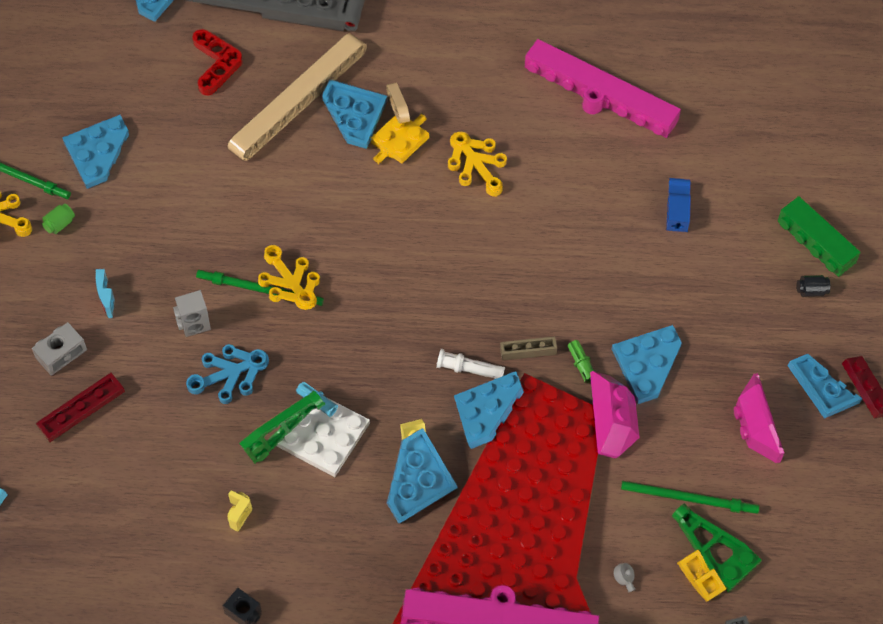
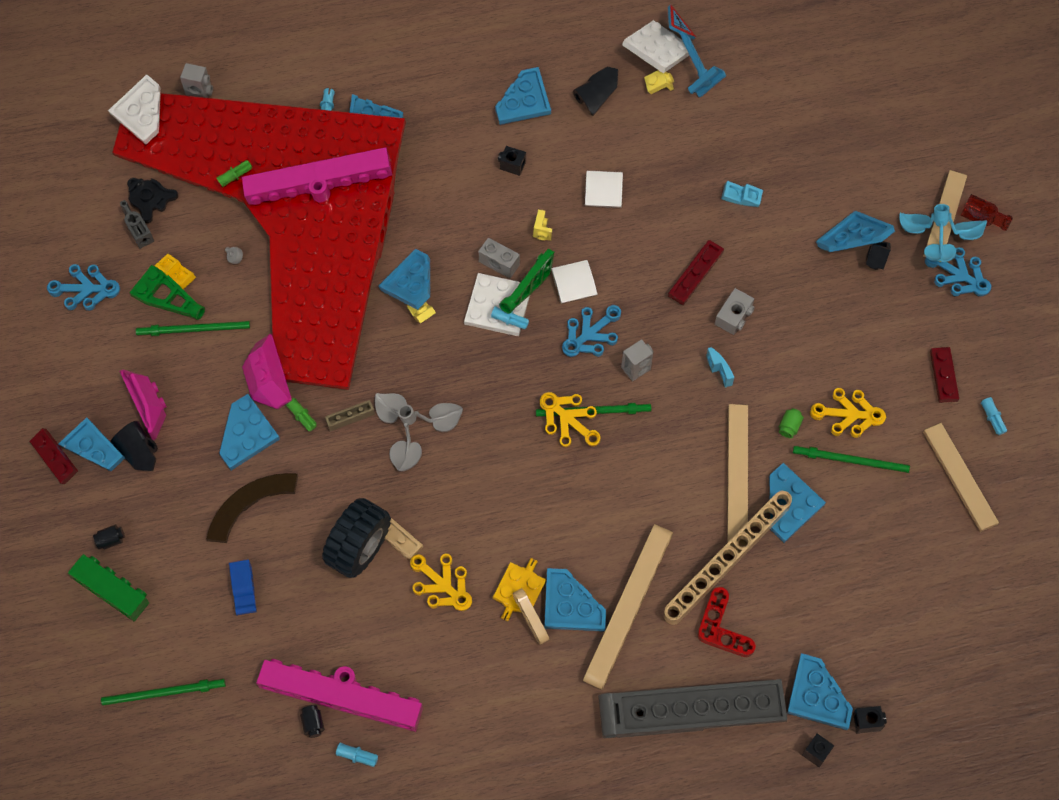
camera: 165 degrees right, 5 degrees up
(137, 187) = (737, 471): none -> tan tile
(143, 541) = (603, 189): none -> white slope
(182, 106) = (730, 548): none -> tan beam
(224, 432) = (574, 281): none -> white slope
(303, 481) = (499, 258): none -> light grey brick
(460, 363) = (404, 385): white pin -> none
(474, 295) = (391, 406): none -> light grey plant
(486, 407) = (370, 347): dark azure plate -> none
(511, 220) = (402, 540): none -> tan tile
(552, 197) = (356, 537): none -> black wheel
(596, 39) = (356, 754): none -> medium azure axle
(633, 72) = (312, 721): none -> black brick
(658, 293) = (245, 498): none -> dark brown tile
(732, 130) = (203, 686): none -> green bar
(774, 370) = (136, 446): none -> black panel
(815, 581) = (85, 288): none -> dark azure plant

